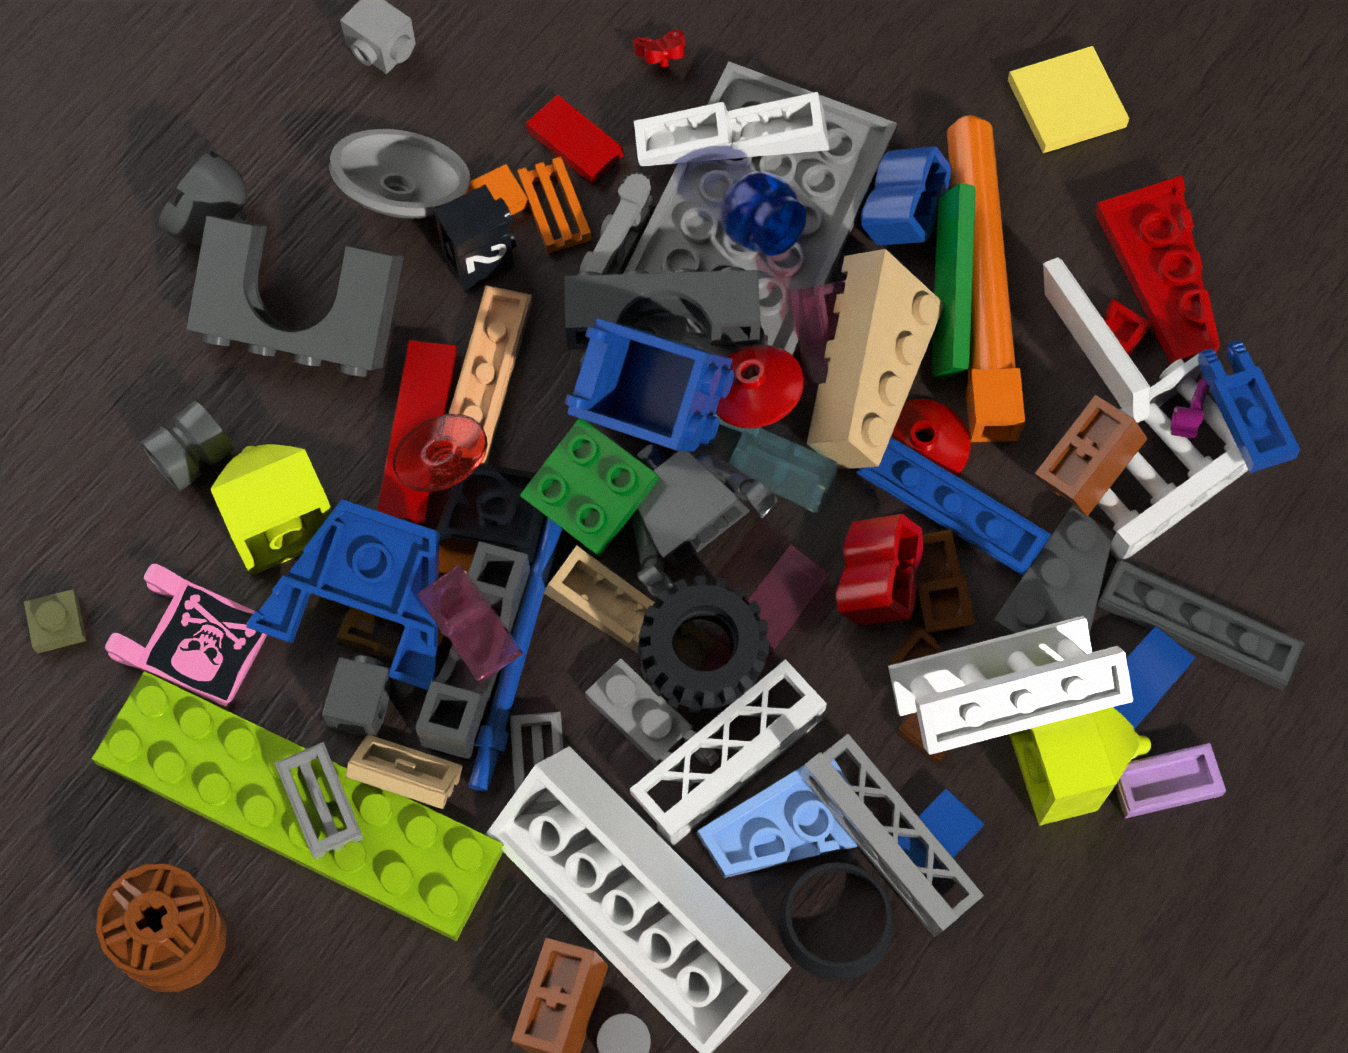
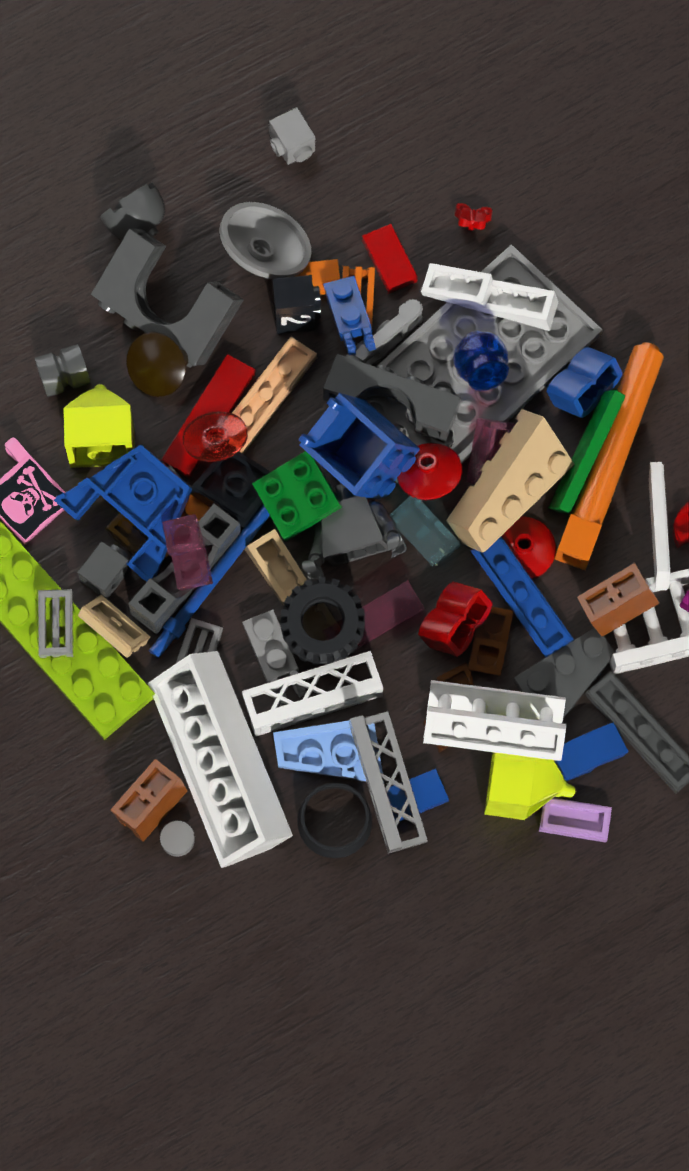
camera: 20 degrees right, 5 degrees up
(317, 388) = (156, 364): none -> dark brown dish
(556, 223) = (349, 313): none -> blue hinge

